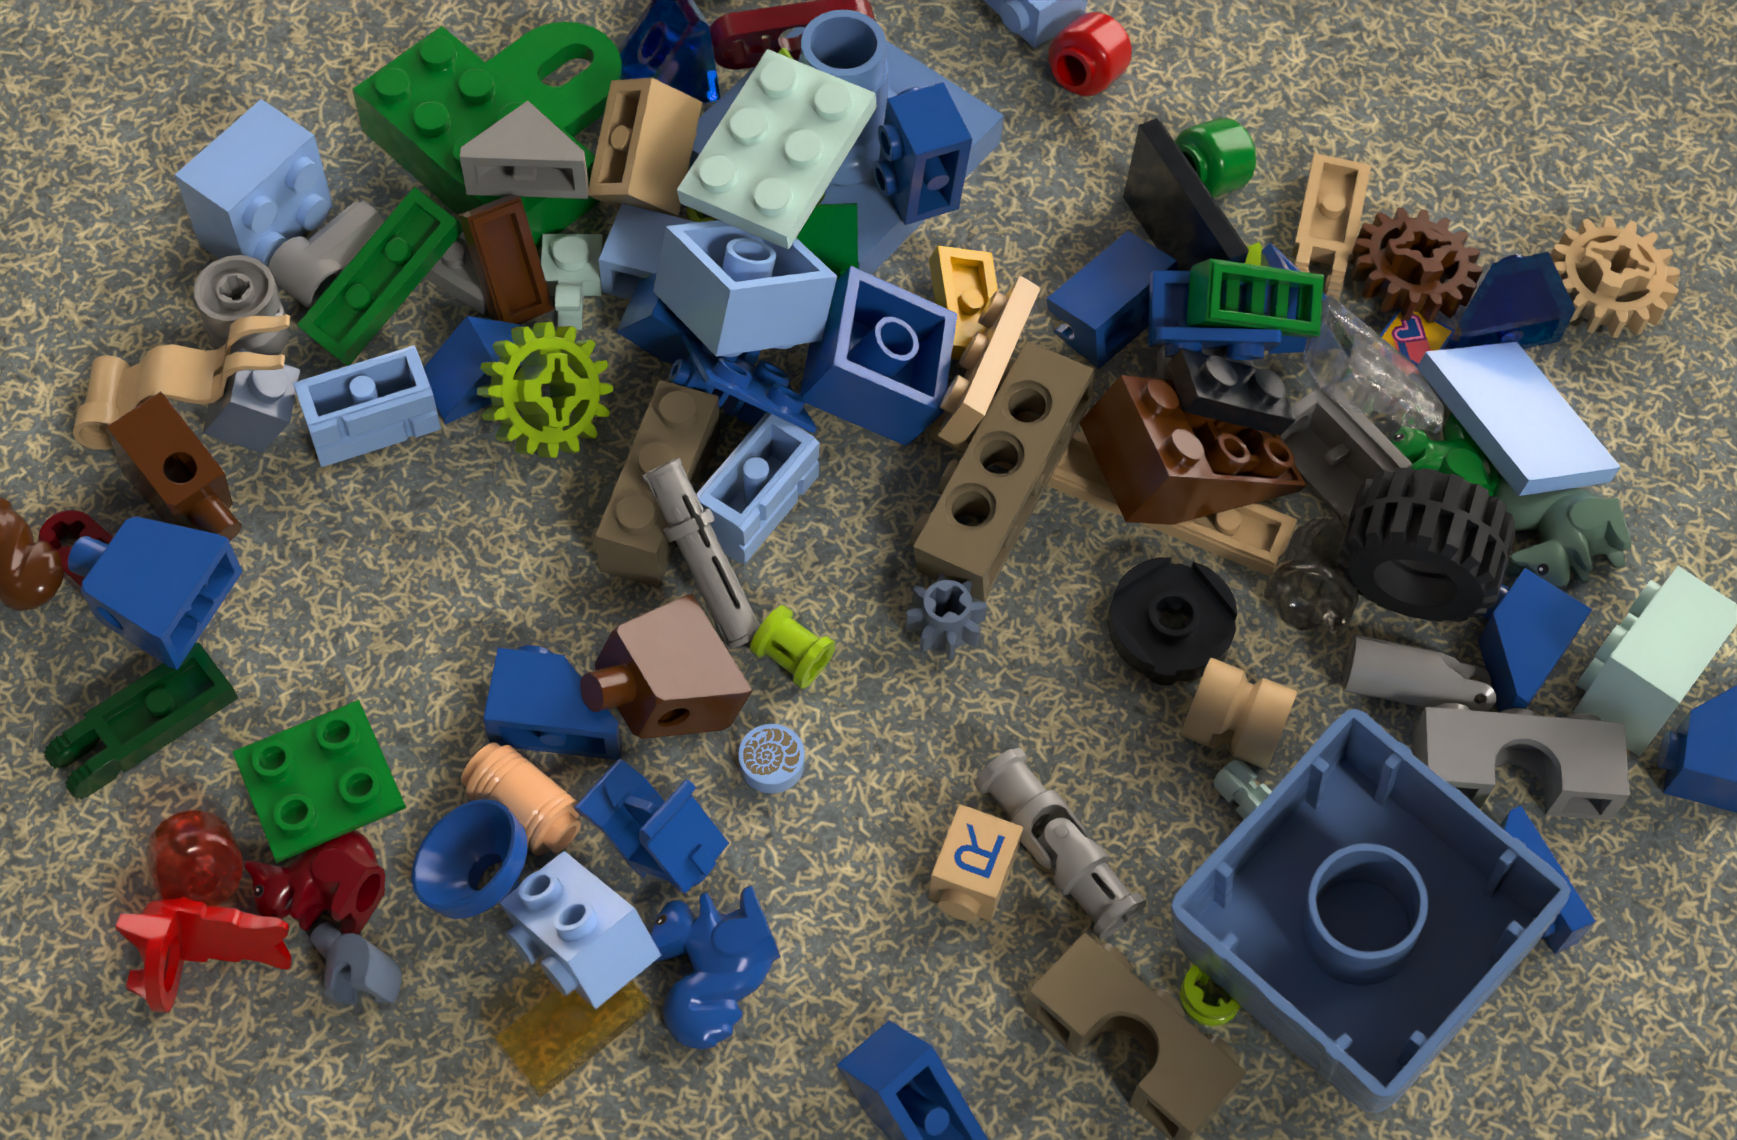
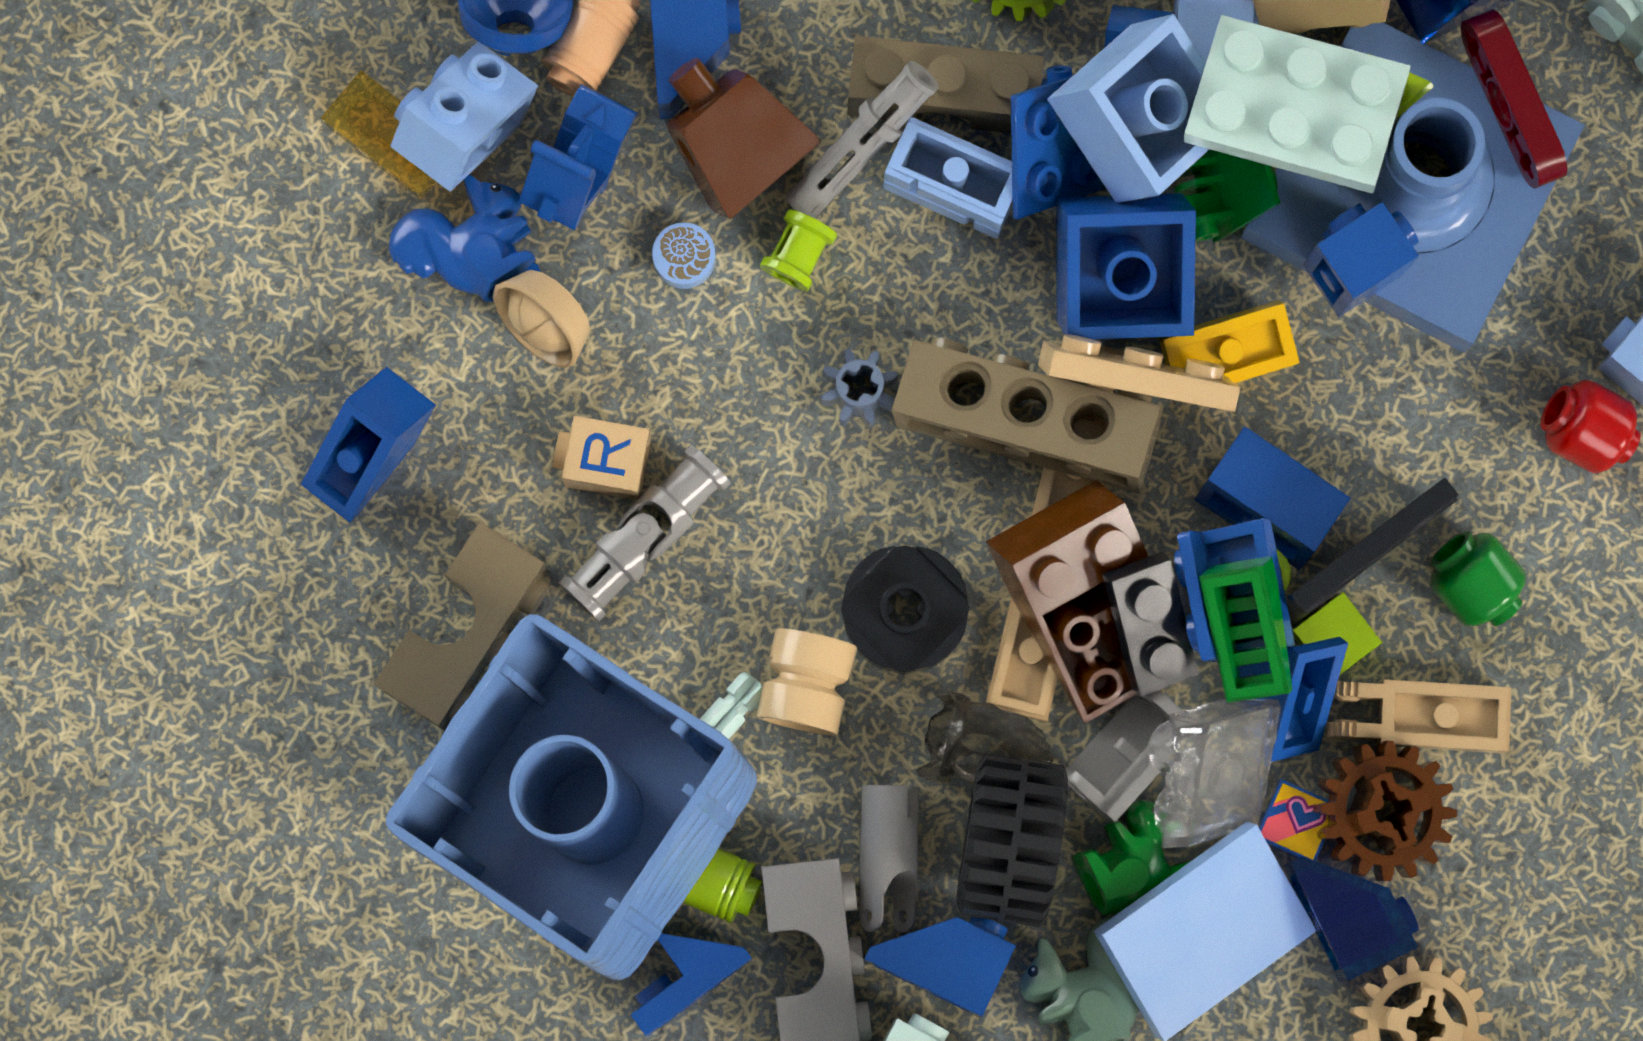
camera: 80 degrees right, 20 degrees up
(816, 893) = (542, 317): none -> tan hat

